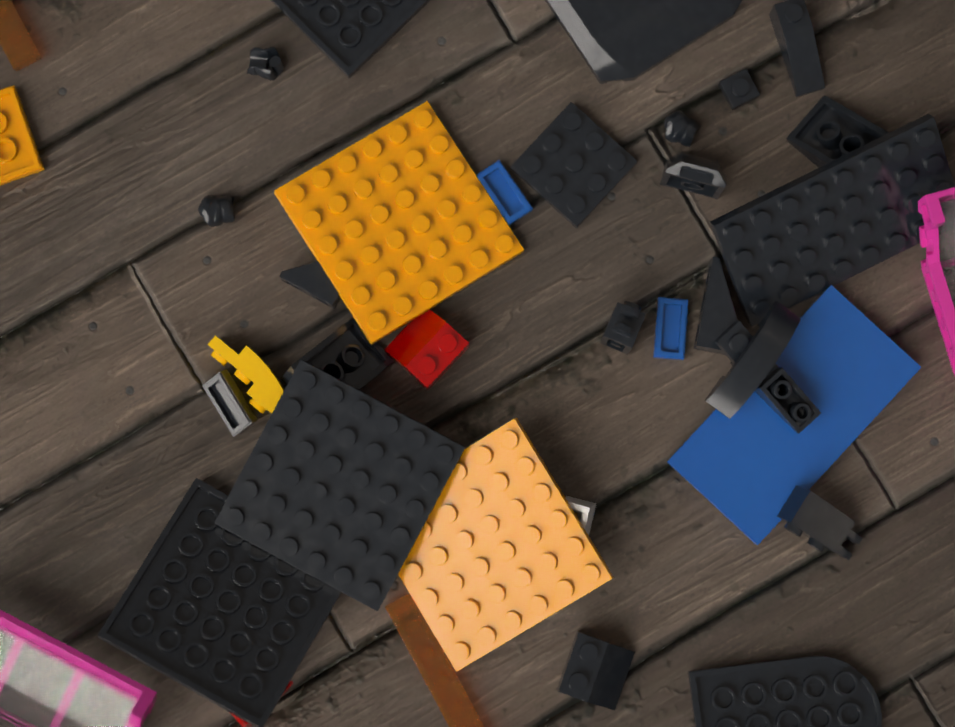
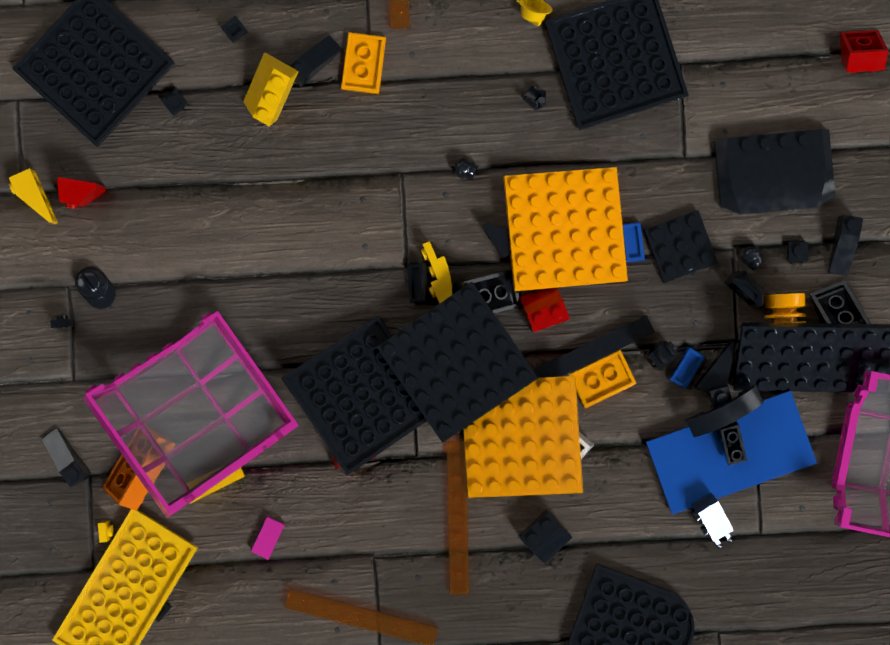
camera: 25 degrees right, 5 degrees up
(531, 365) = (596, 349): none -> black tile
(561, 404) = (603, 378): none -> light orange tile
(759, 171) = (785, 307): none -> light orange wheel

